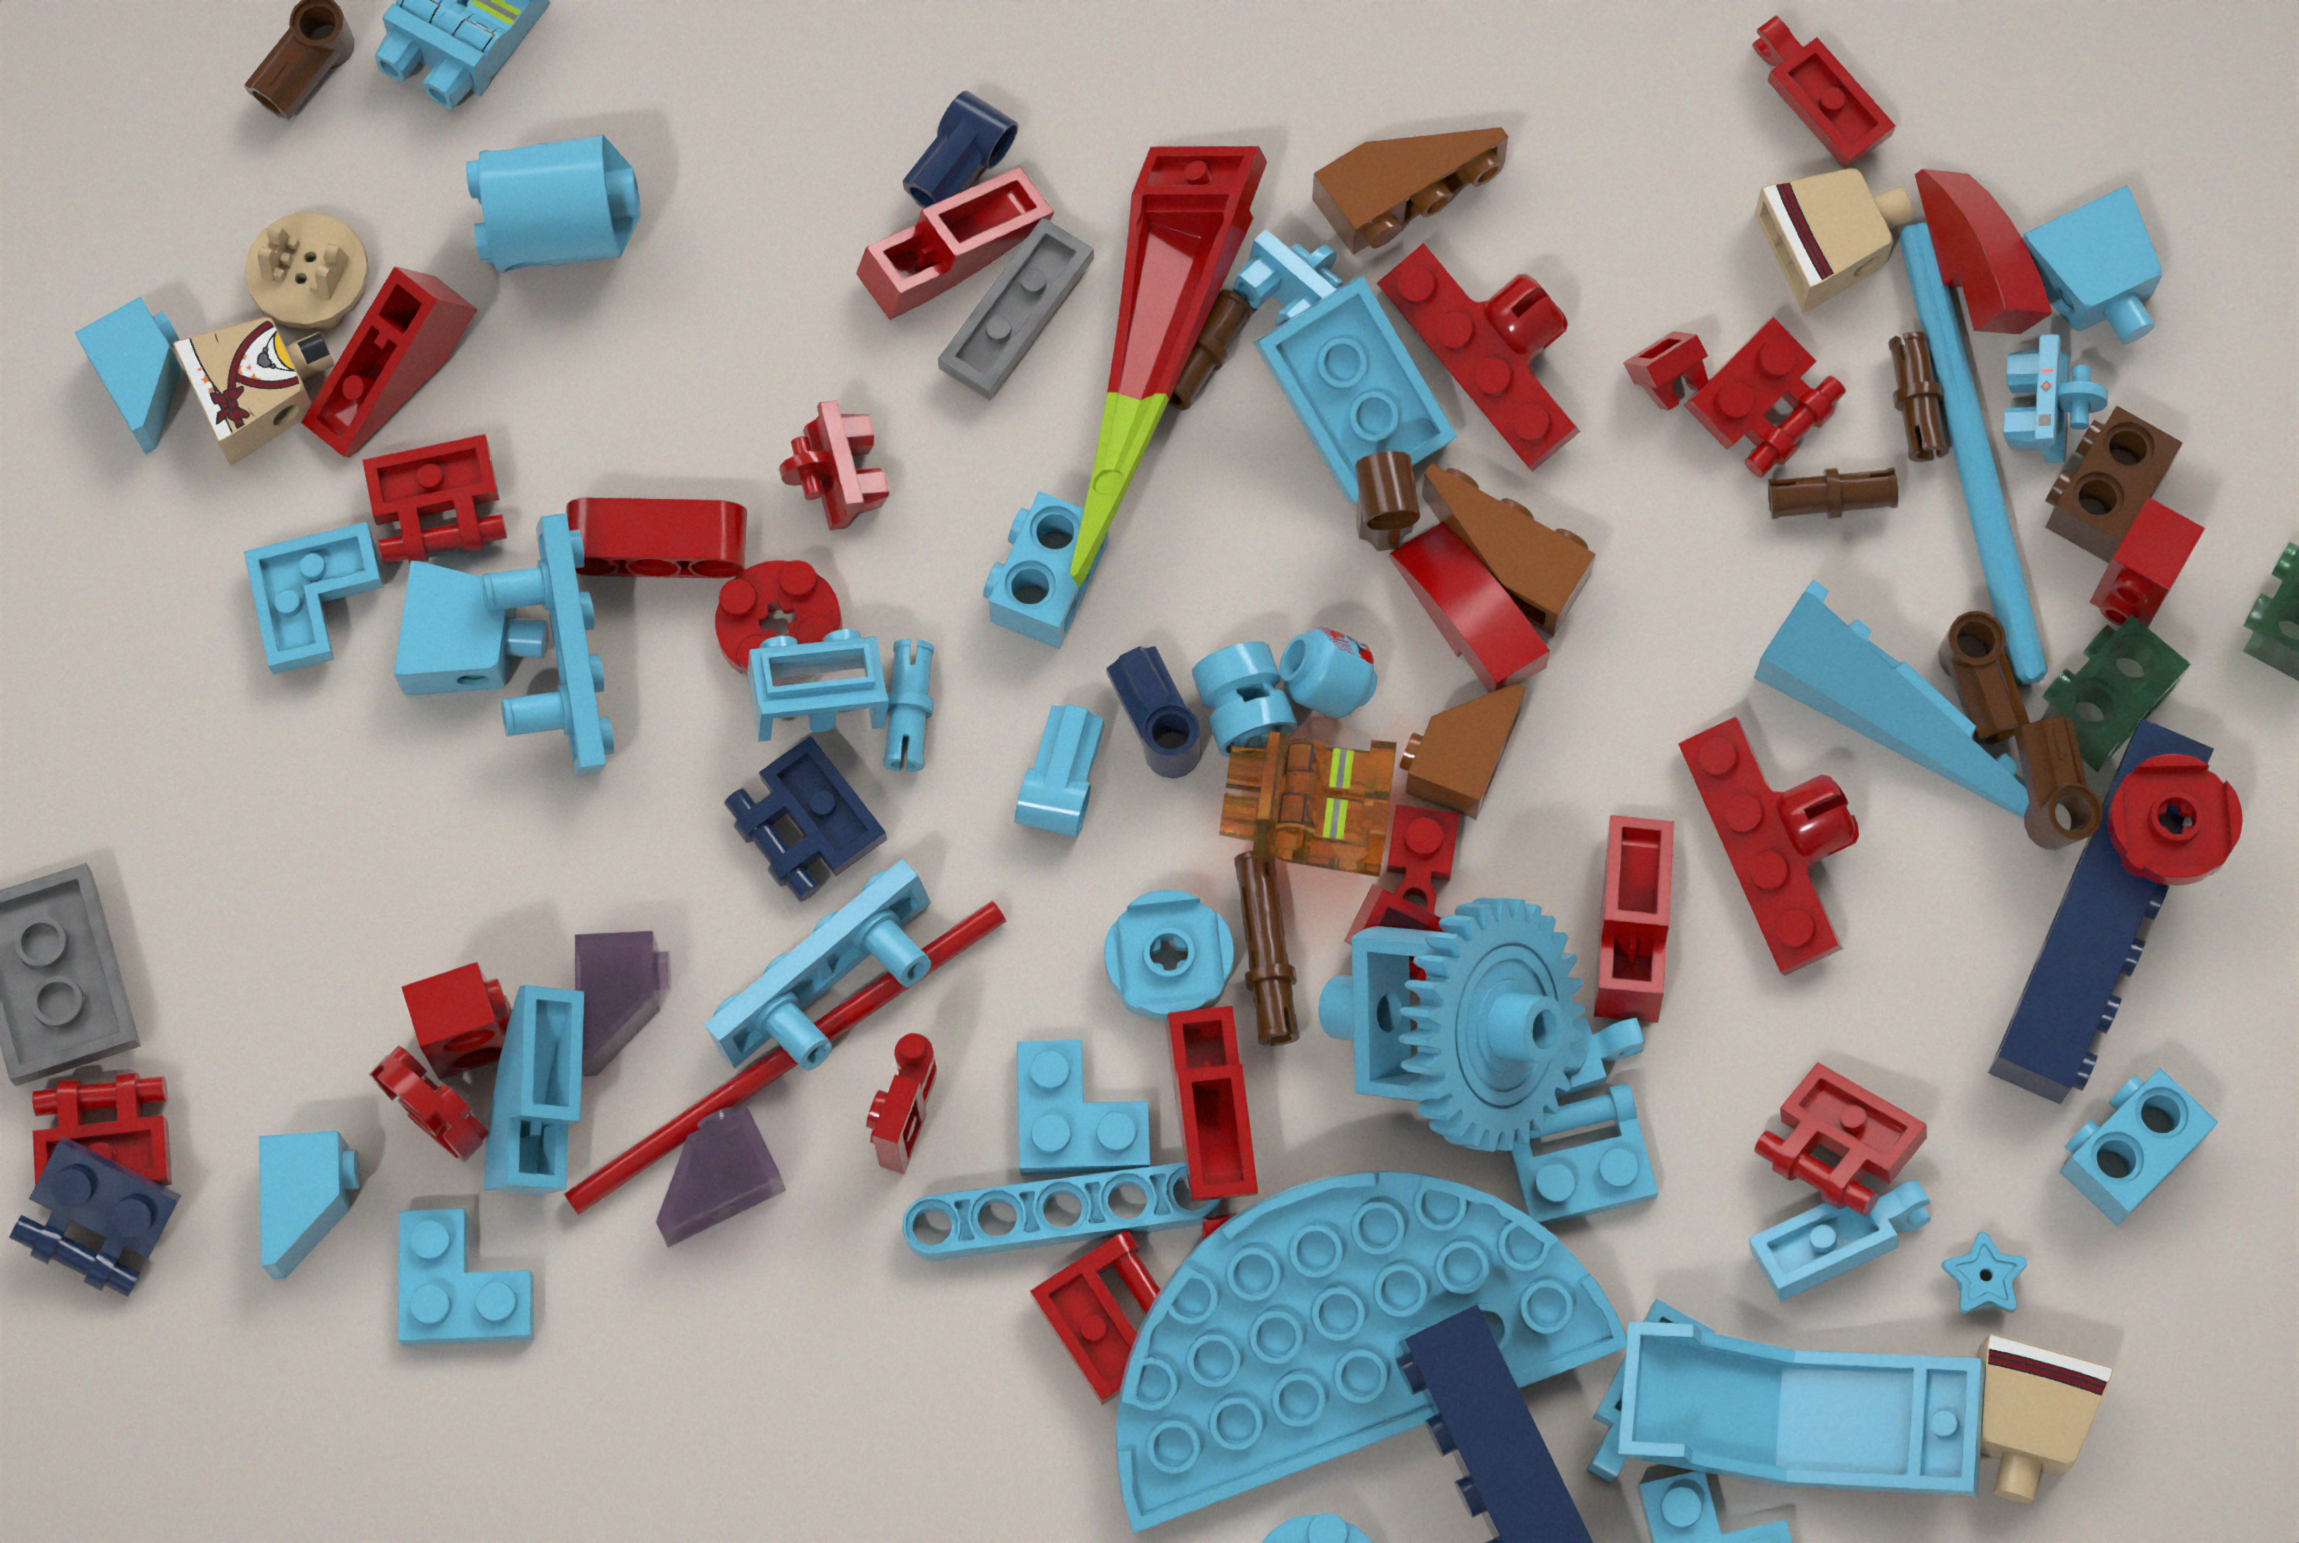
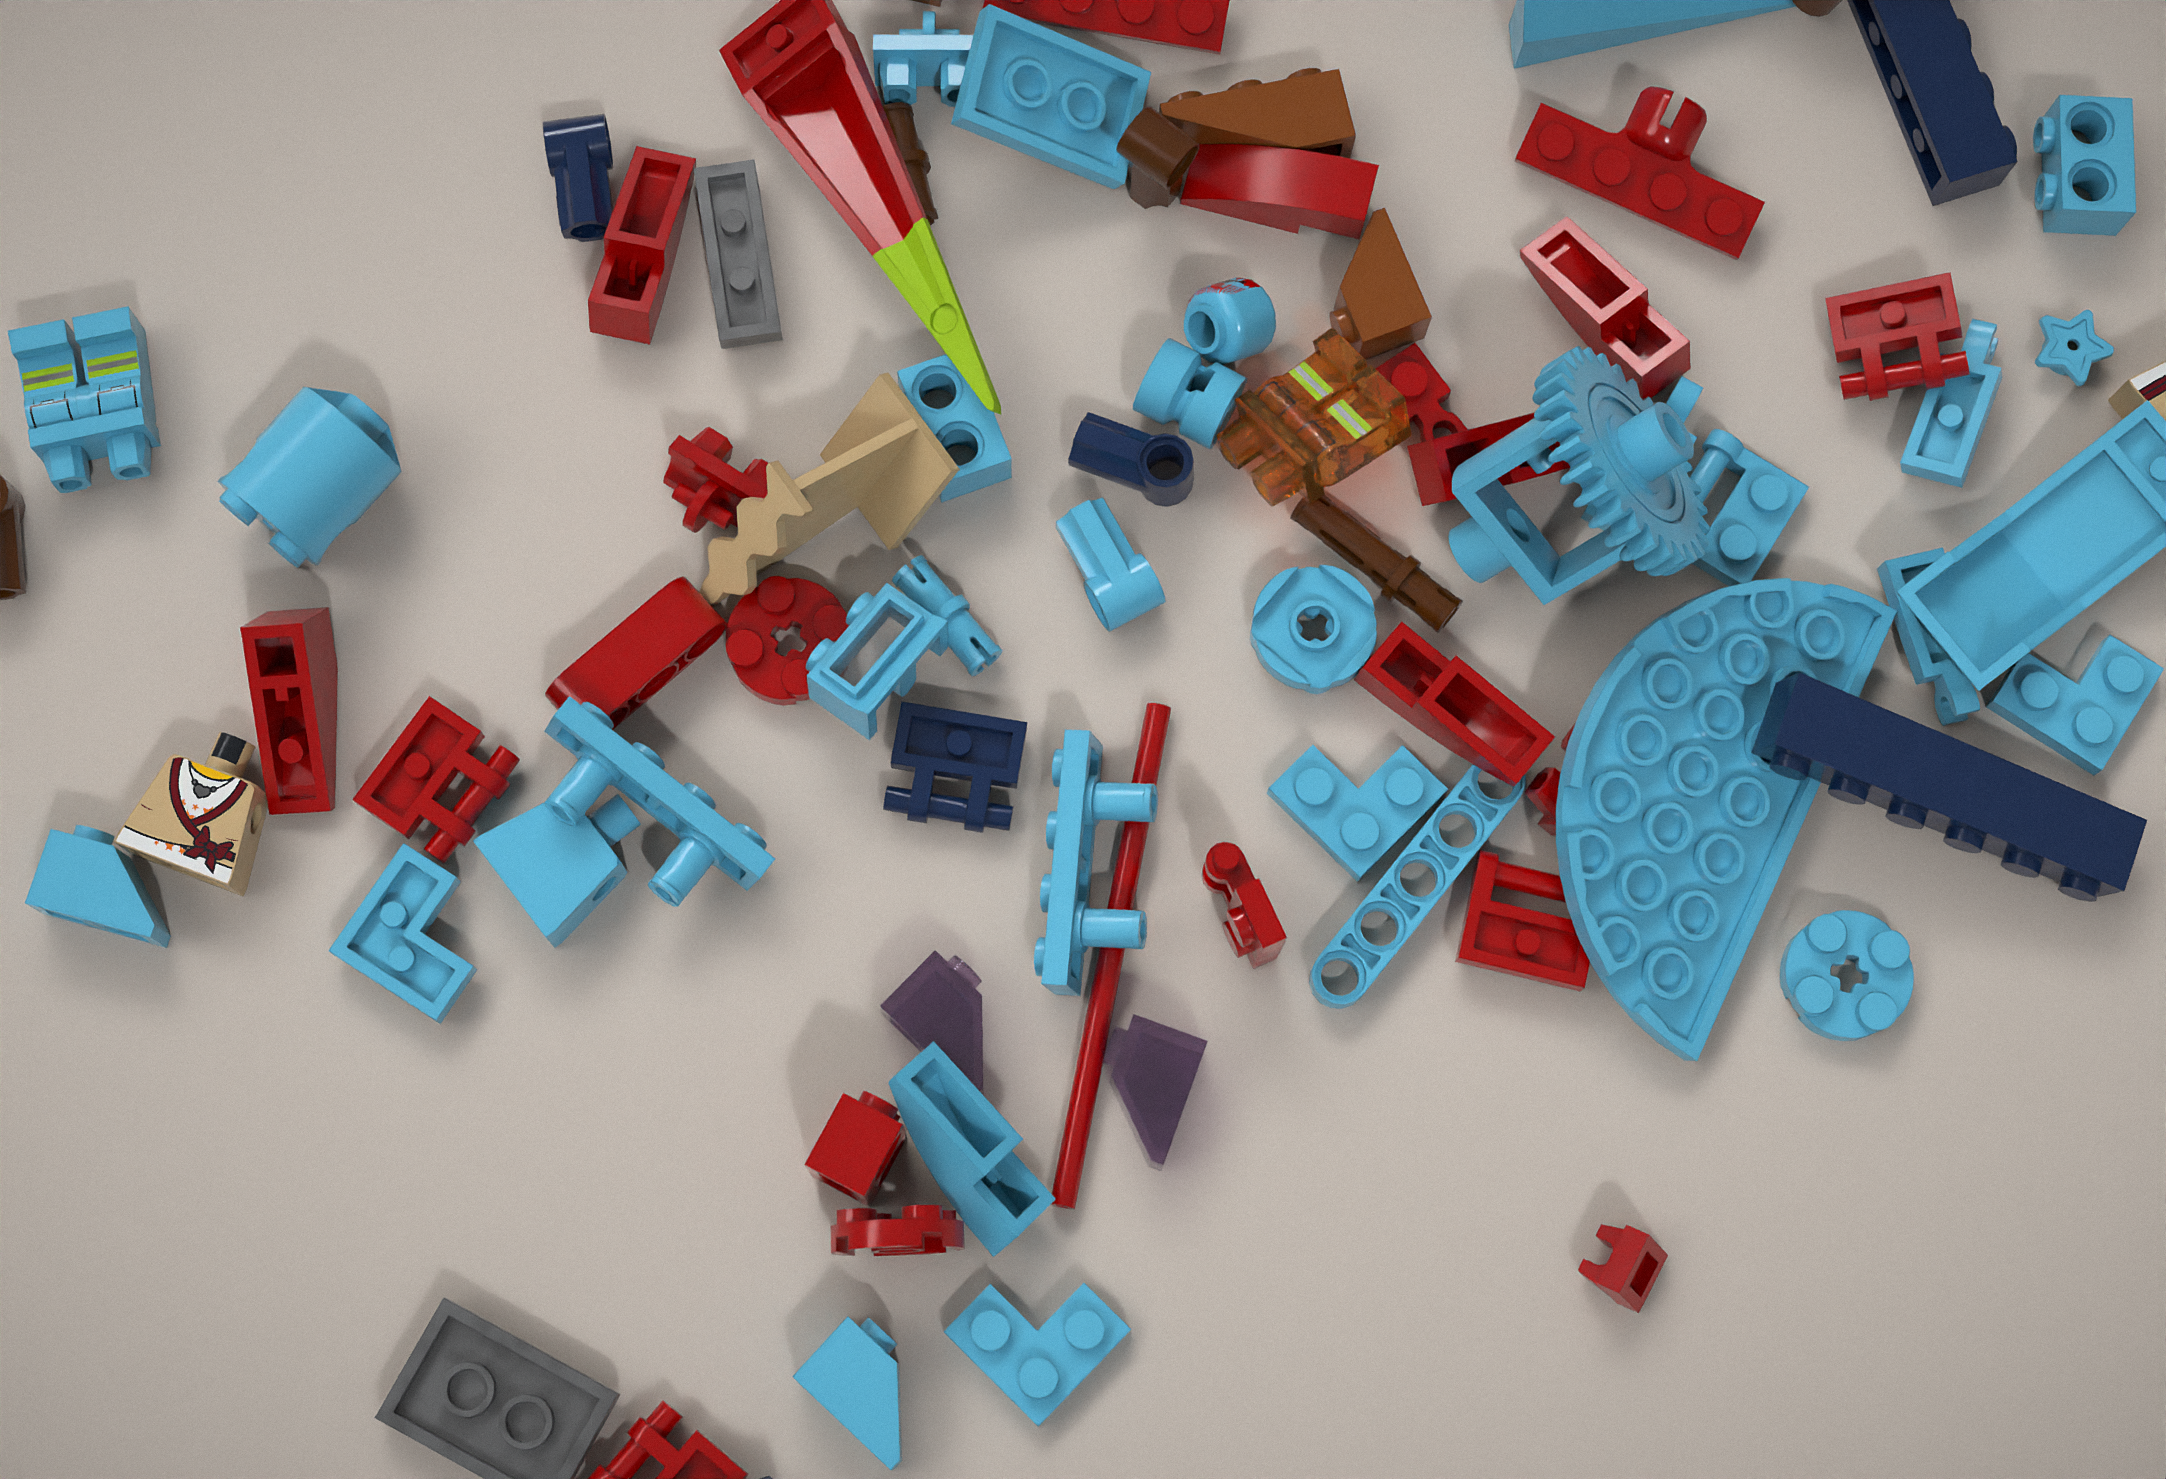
camera: 50 degrees left, 5 degrees up
(333, 279) = (130, 708): tan plate -> none
(958, 546) = (875, 461): none -> tan piece

